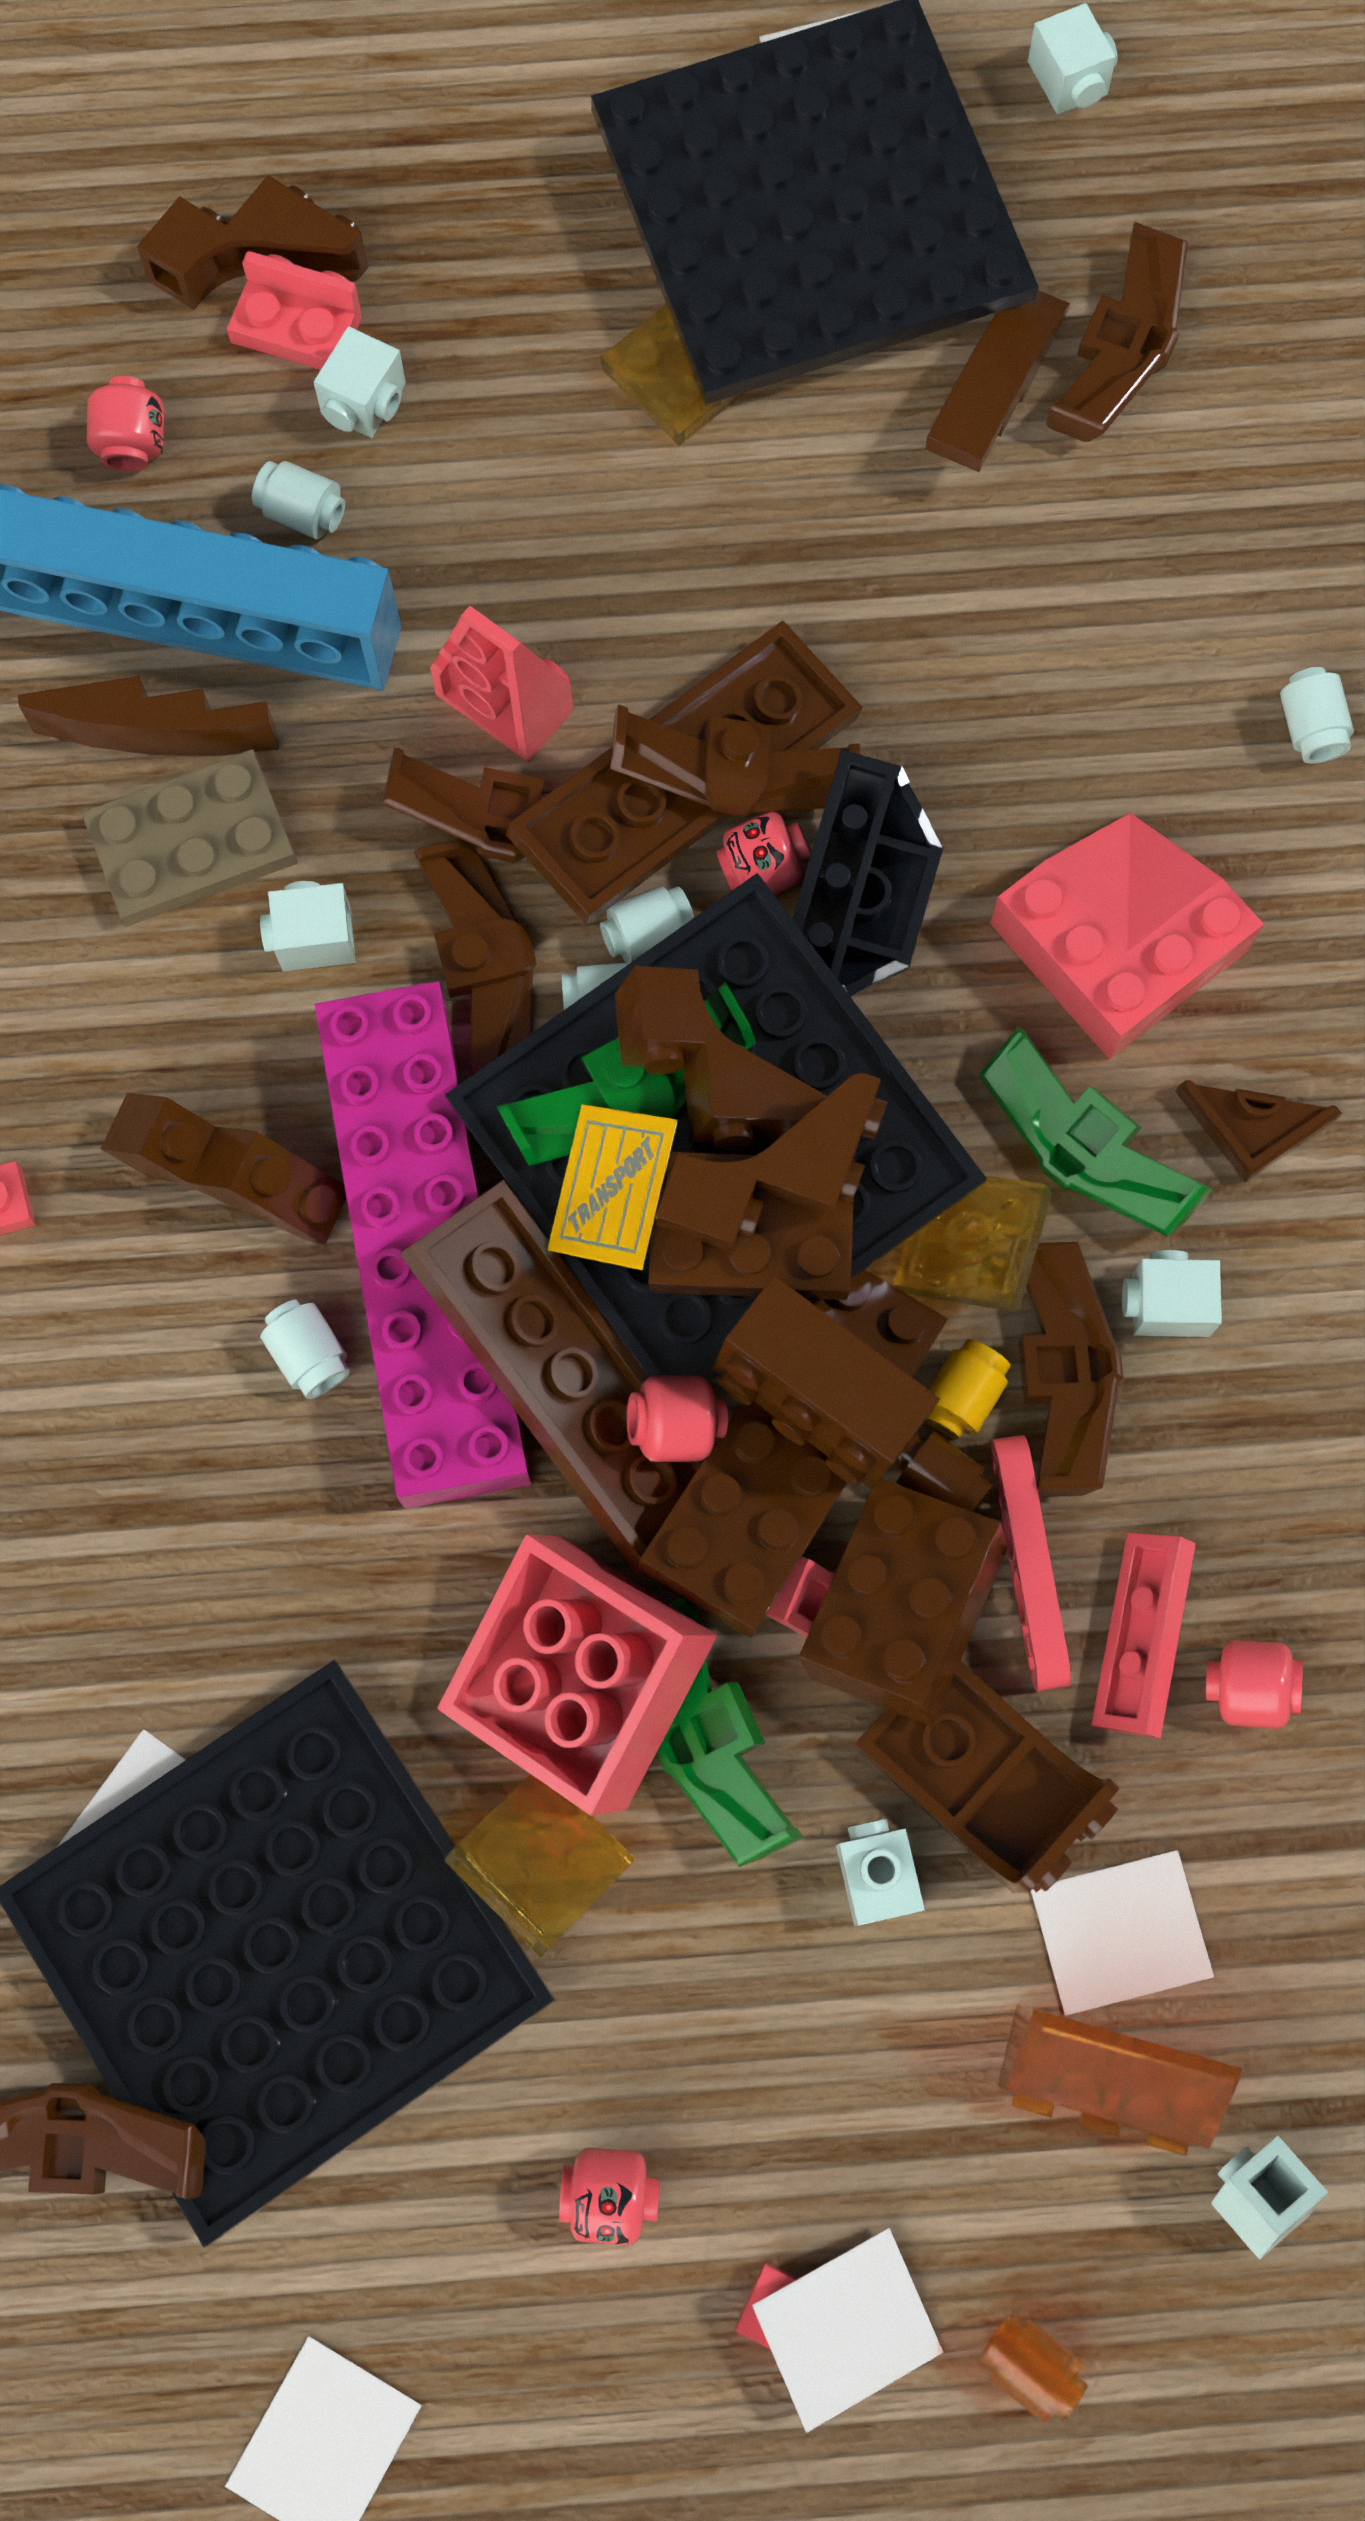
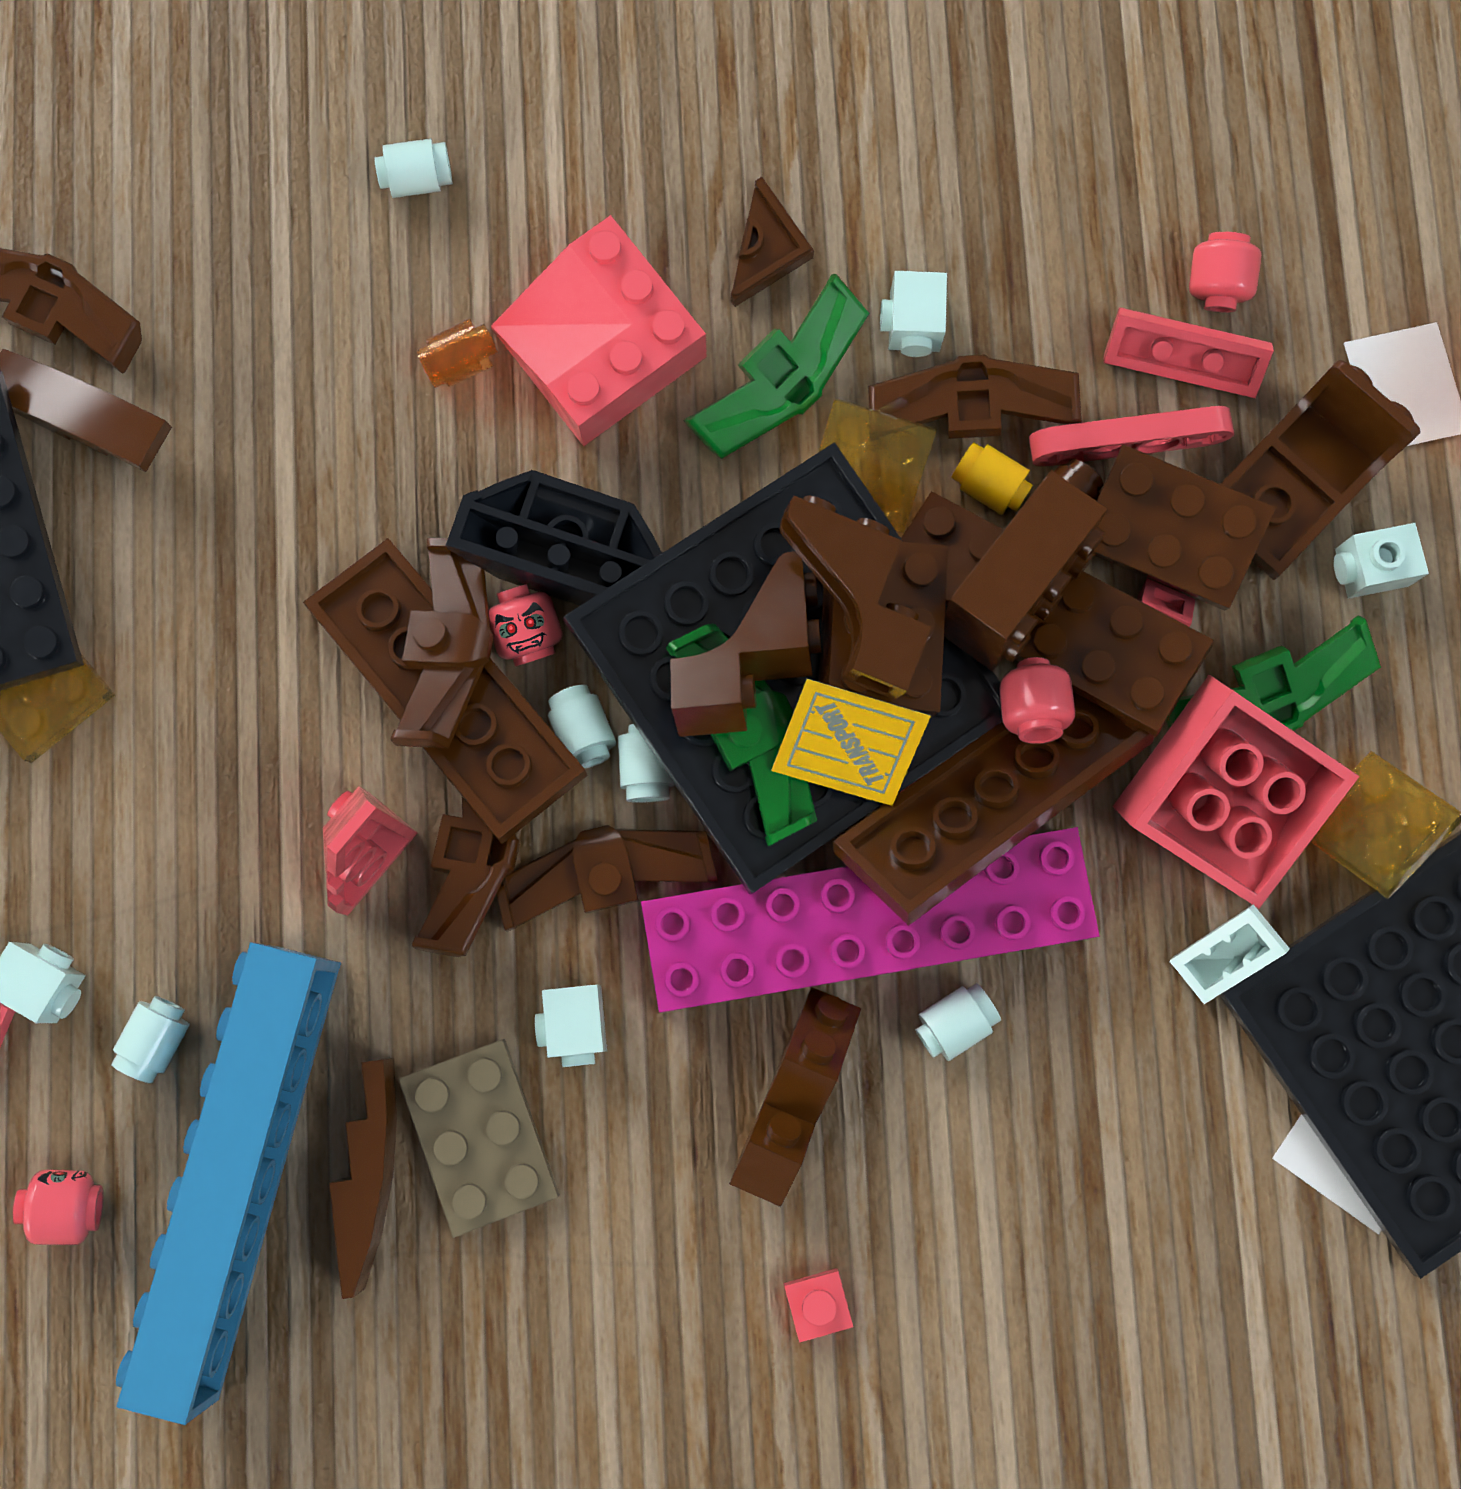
camera: 90 degrees left, 5 degrees up
(380, 1666) = (1229, 954): none -> light aqua slope
(1089, 773) = (457, 353): none -> clear orange brick

